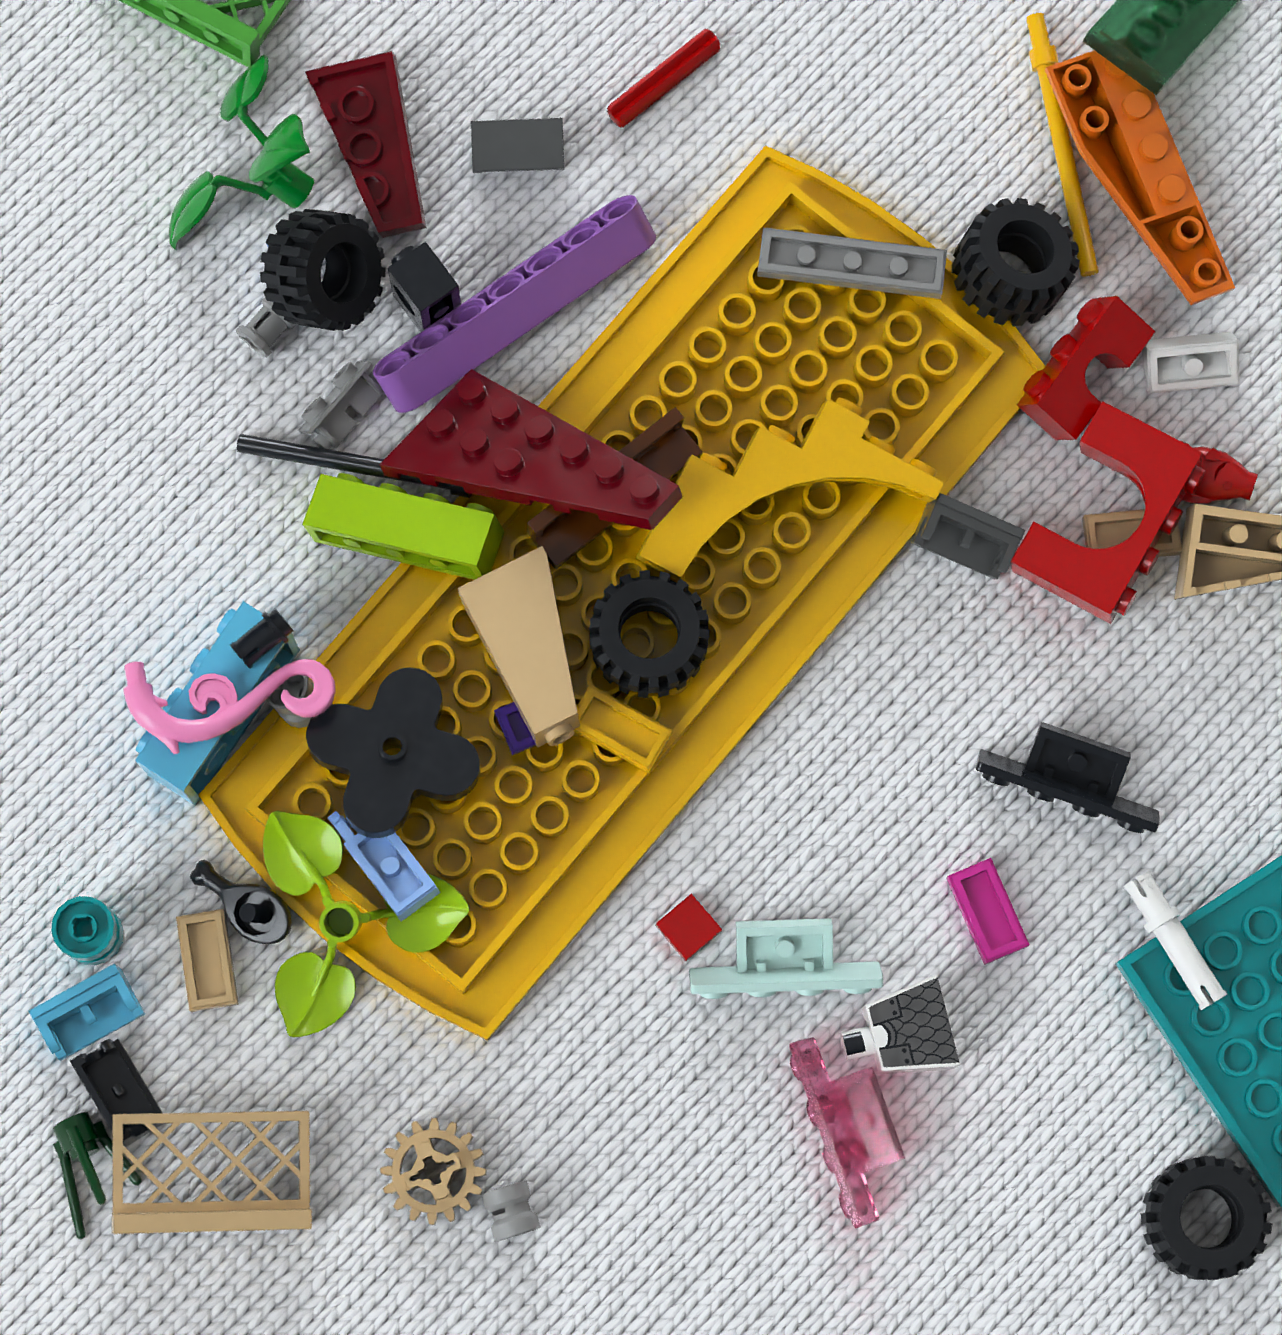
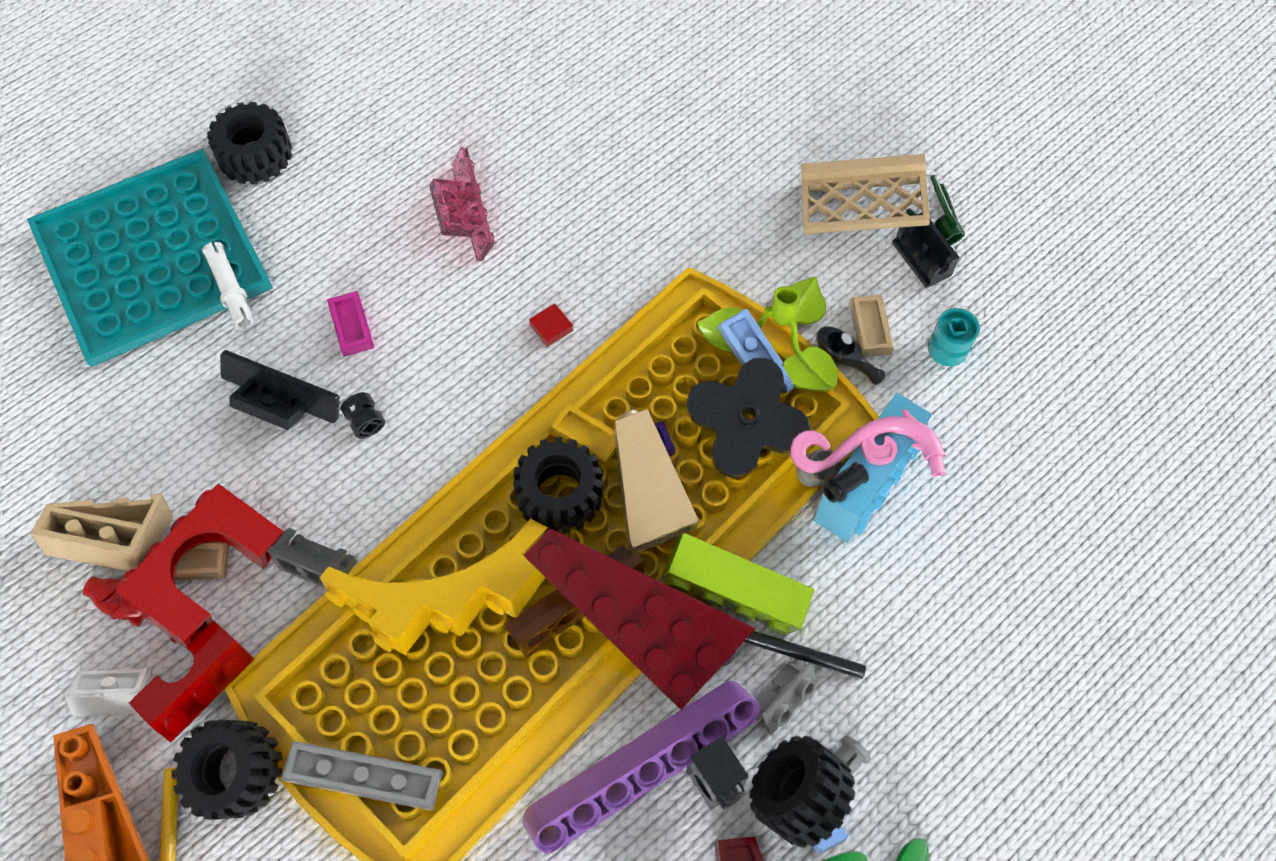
camera: 175 degrees left, 15 degrees down
(87, 1012) = (961, 293): medium azure hinge -> none
(425, 1150) = (724, 197): tan gear -> none
(510, 1211) = (677, 176): light grey wheel -> none
(785, 958) = (489, 293): light aqua bracket -> none
(905, 1031) = (416, 253): torso -> none
(939, 752) = (361, 412): none -> black wheel

